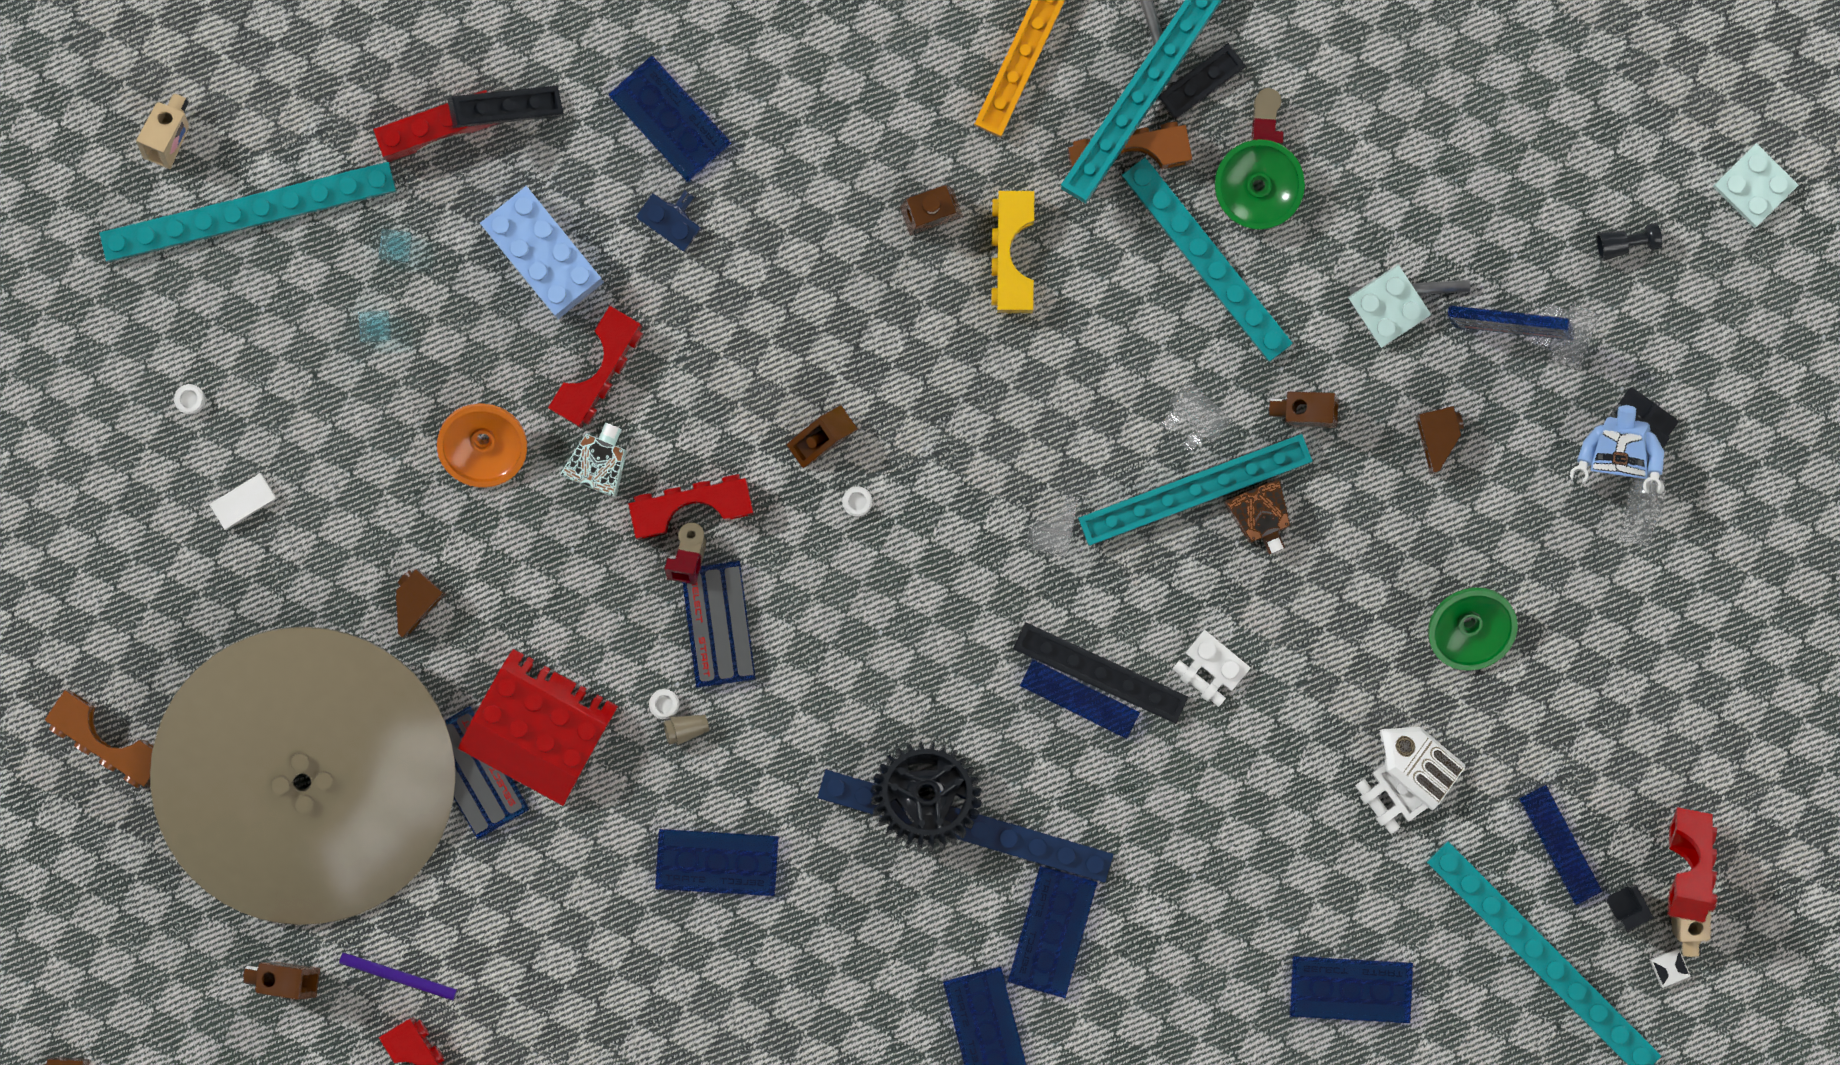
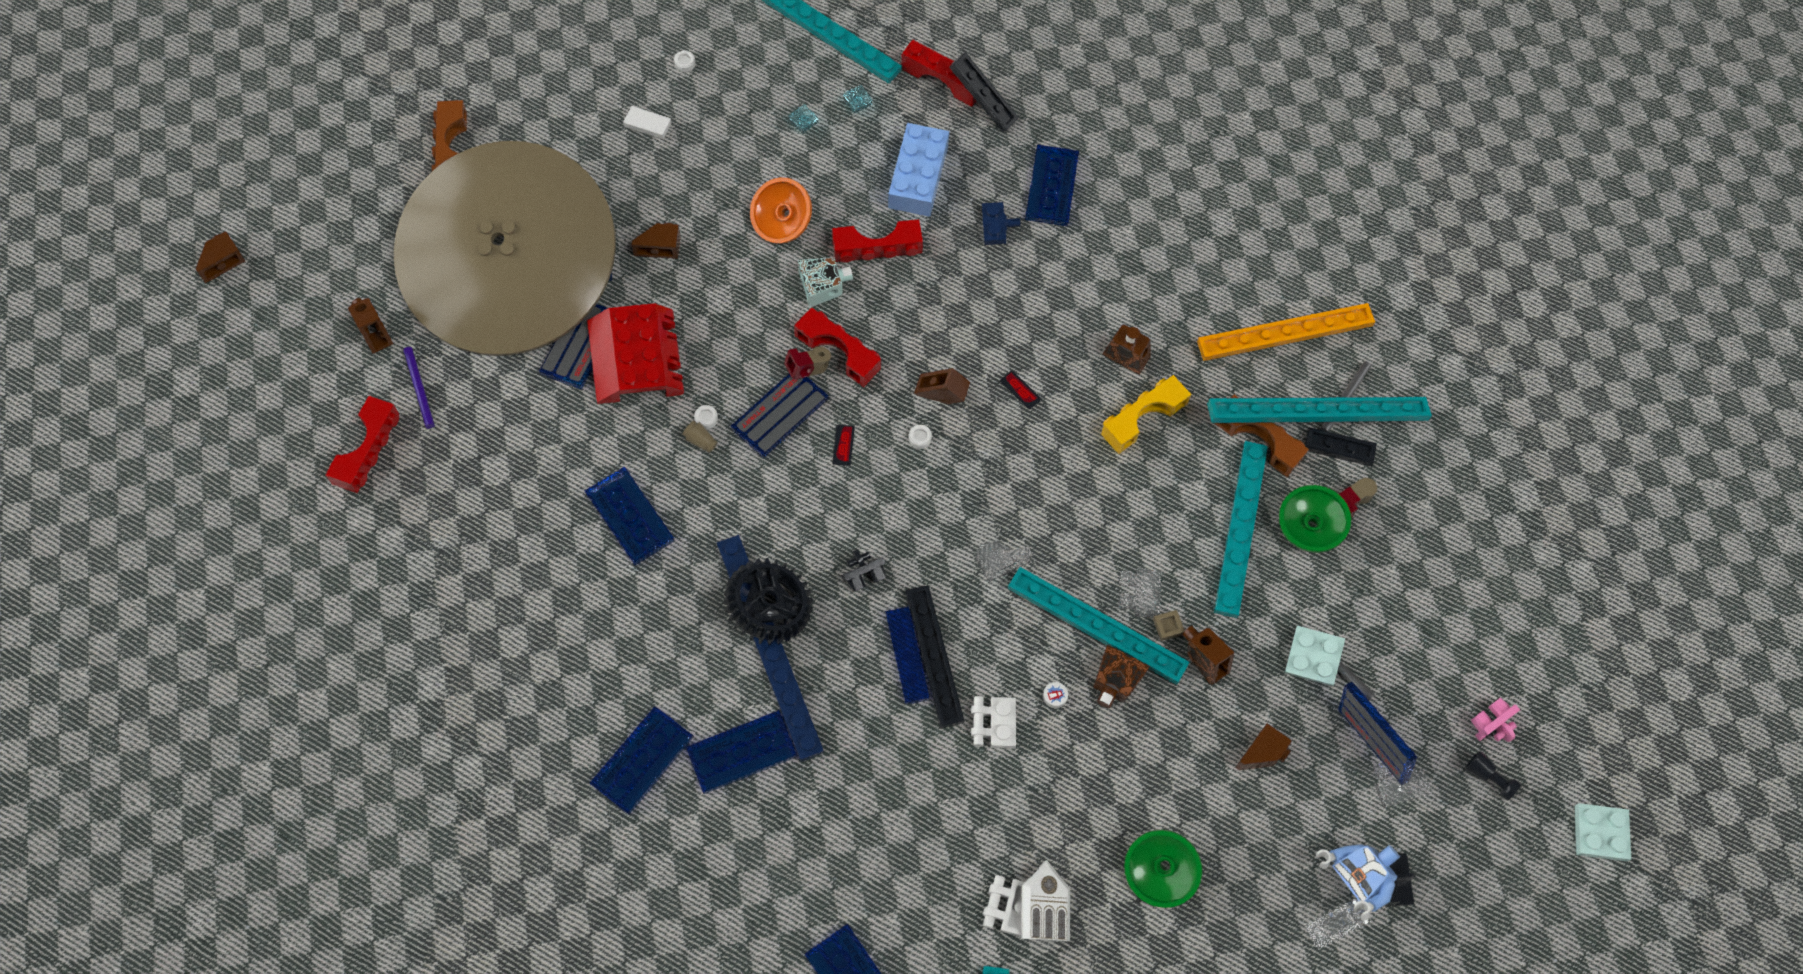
camera: 45 degrees right, 20 degrees down
(804, 586) = (843, 445): none -> sticker
(884, 354) = (1020, 390): none -> sticker
(957, 673) = (854, 576): none -> black hips
(1230, 587) = (1055, 695): none -> white tile
(1249, 420) = (1168, 625): none -> dark tan plate
(1583, 203) = (1503, 713): none -> bright pink hips

